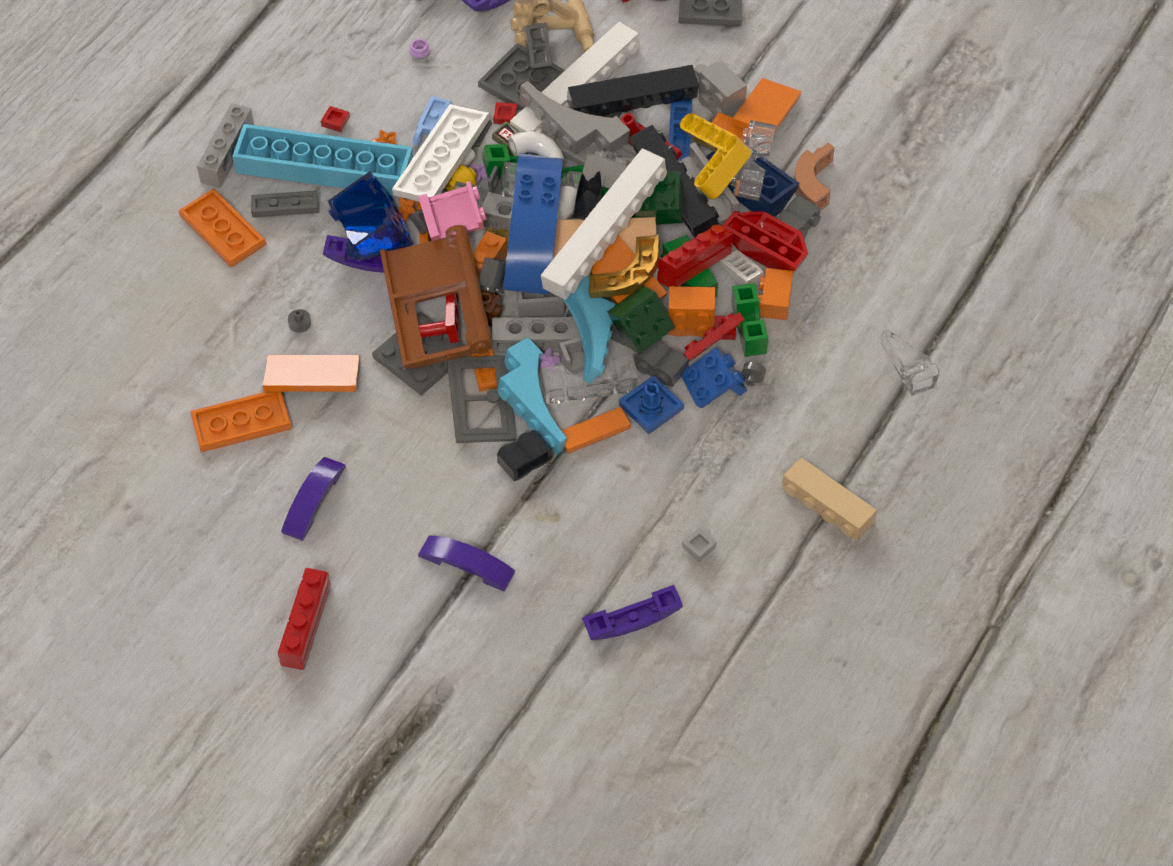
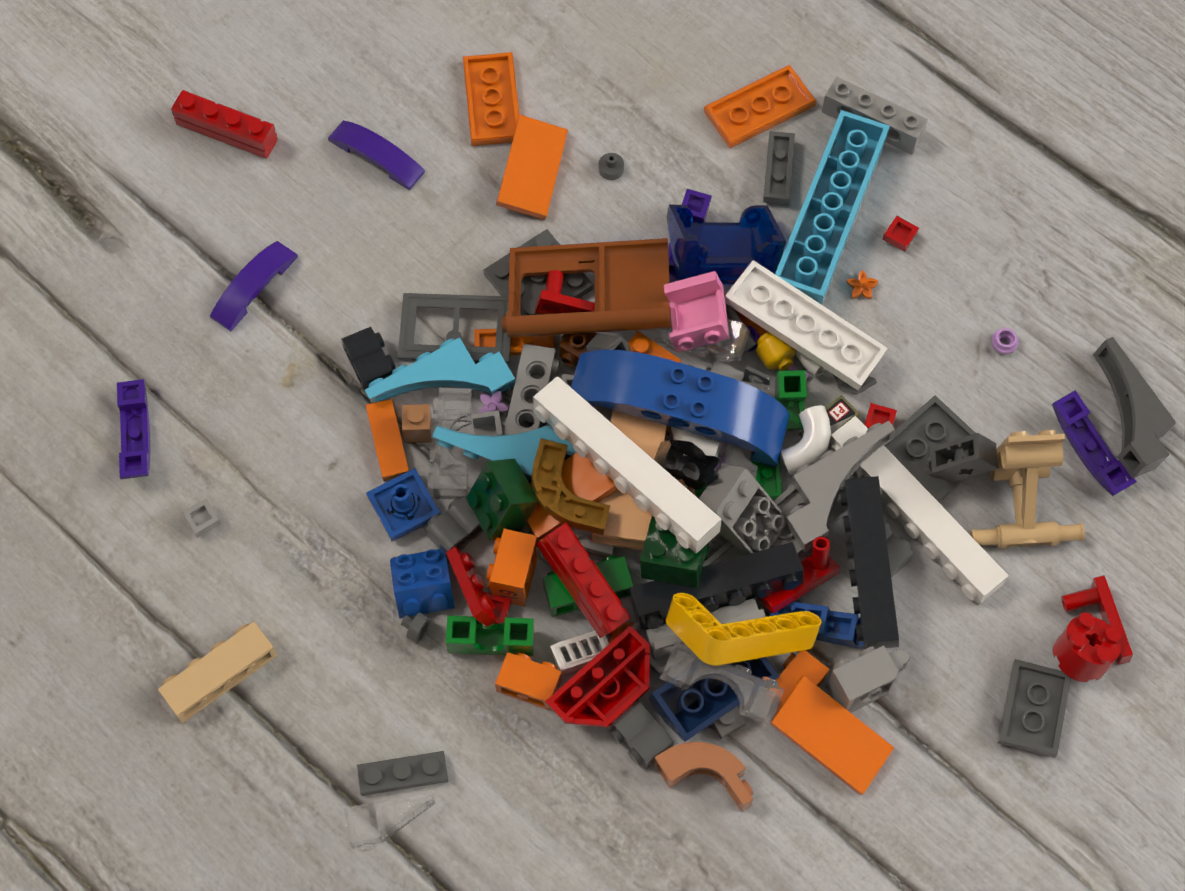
camera: 100 degrees right, 10 degrees up
(430, 117) = (899, 343): light blue hinge -> none
(578, 405) = (416, 423): none -> medium nougat brick
(870, 364) = (402, 773): none -> dark grey plate

